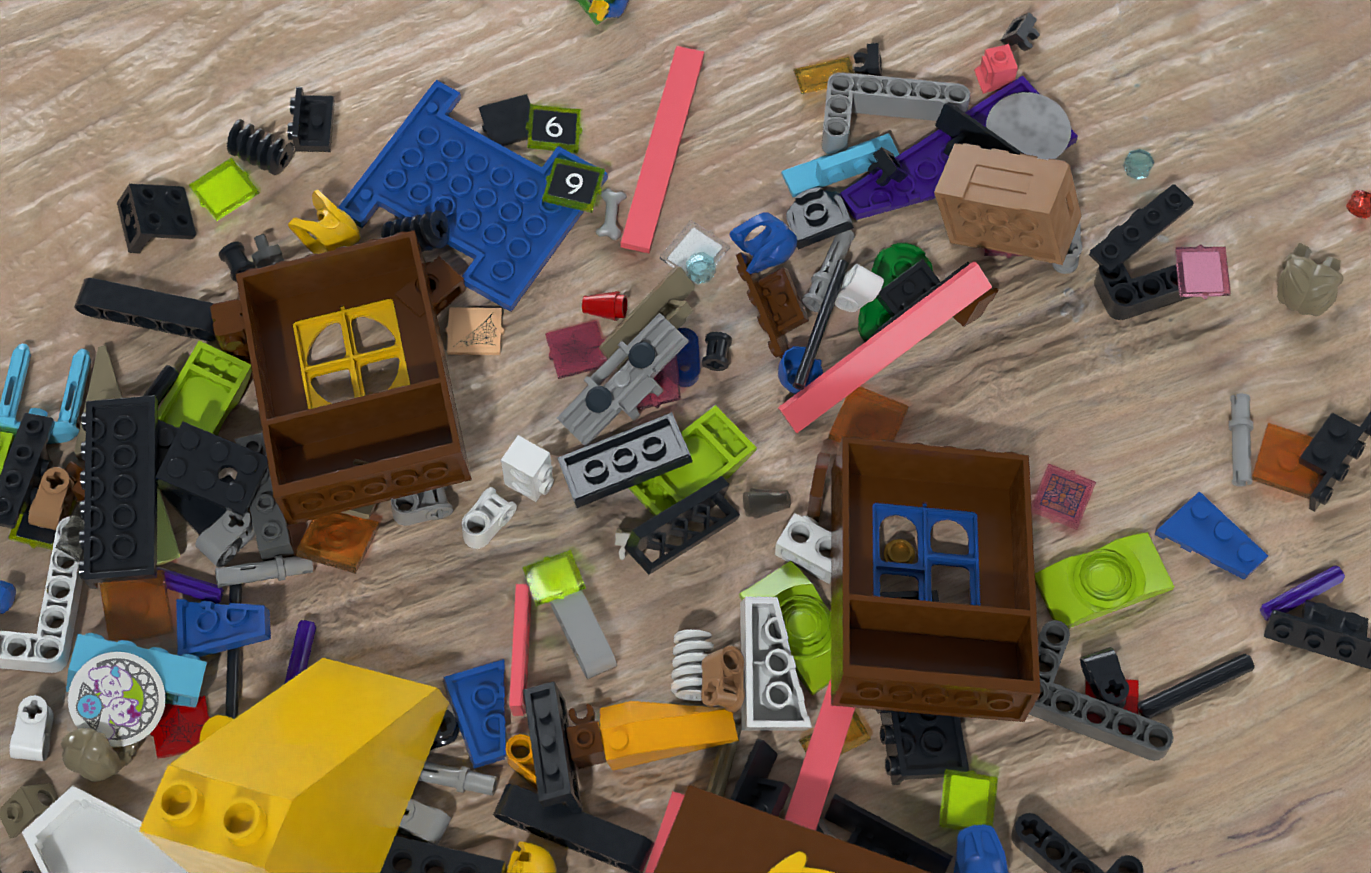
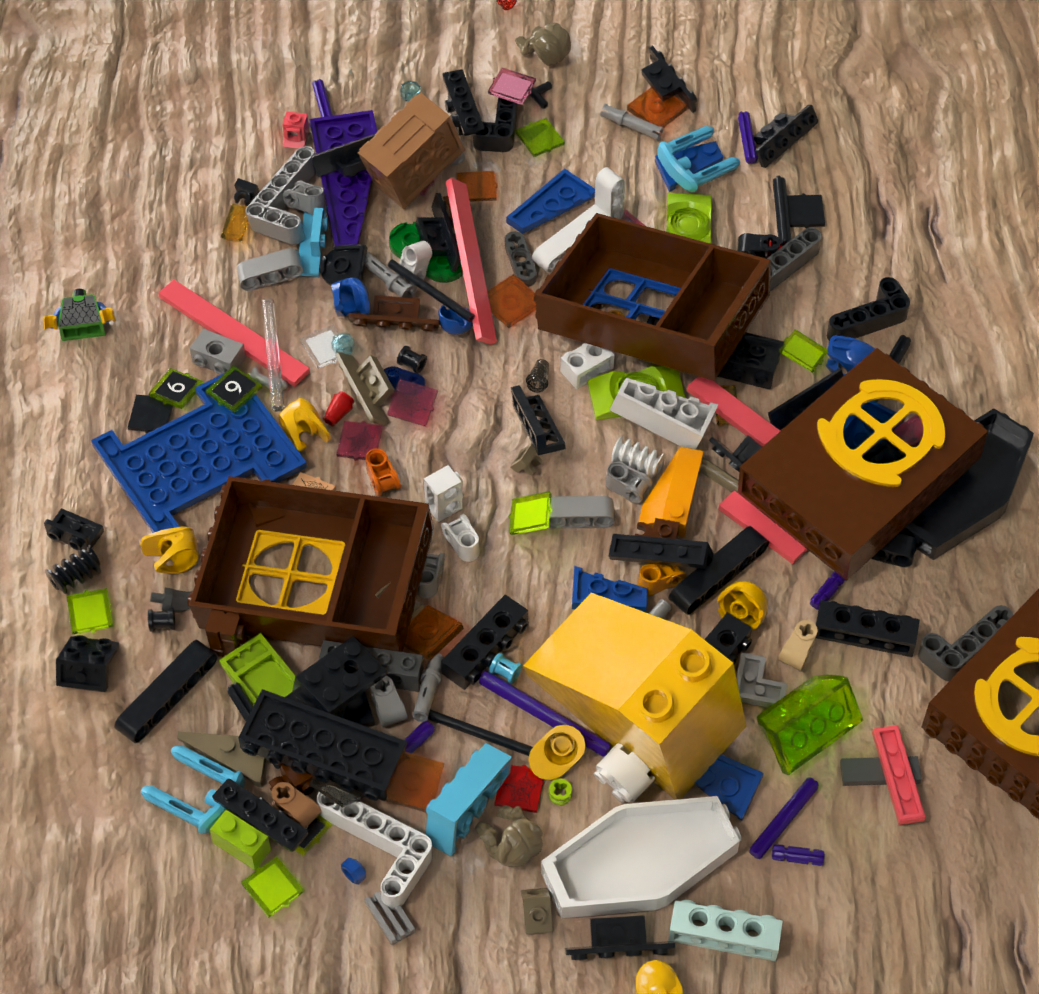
camera: 65 degrees left, 10 degrees down
(32, 736) = (476, 883): white piece -> none
(117, 697) = (488, 803): sticker -> none
(215, 628) = (459, 731): blue wing -> none
(308, 585) = (504, 612): none -> black brick
(326, 641) = (505, 668): none -> medium azure bush
(430, 228) = (213, 496): black piece -> none
(520, 649) = (573, 552): coral tile -> none
(531, 396) = (382, 475): none -> orange piece
(565, 271) = (302, 417): none -> yellow helmet
(623, 130) = (216, 352): none -> light grey brick
(624, 460) = (467, 435): tile -> none
(629, 386) = (414, 411): light grey piece -> none
(643, 201) = (273, 357): none -> clear axle
(653, 674) = (628, 481): none -> light grey piece
(716, 451) = (488, 405): lime slope -> none
(722, 677) = (658, 436): medium nougat piece -> none
(767, 140) = (269, 269): none -> light grey beam
(818, 486) = (547, 338): reddish brown tile -> none
(889, 165) = (336, 208): black tile -> none
(892, 126) = (305, 197): none -> light grey piece
(944, 392) = (522, 250): none -> dark grey beam
(1019, 30) = (274, 108): black tile -> none
(1031, 124) = (348, 126): flat silver sticker -> none
(1031, 306) = (480, 185): none -> clear orange piece
(1047, 464) = (608, 201): none -> white beam
(1056, 402) = (553, 199): none -> blue wing
(1068, 76) = (322, 99): none -> dark purple axle
(1155, 343) = (540, 137): none -> clear neon green piece
(1184, 524) = (680, 168): none -> medium azure piece
(1217, 716) = (806, 211): none -> black piece
(1226, 305) = (535, 94): none -> black piece

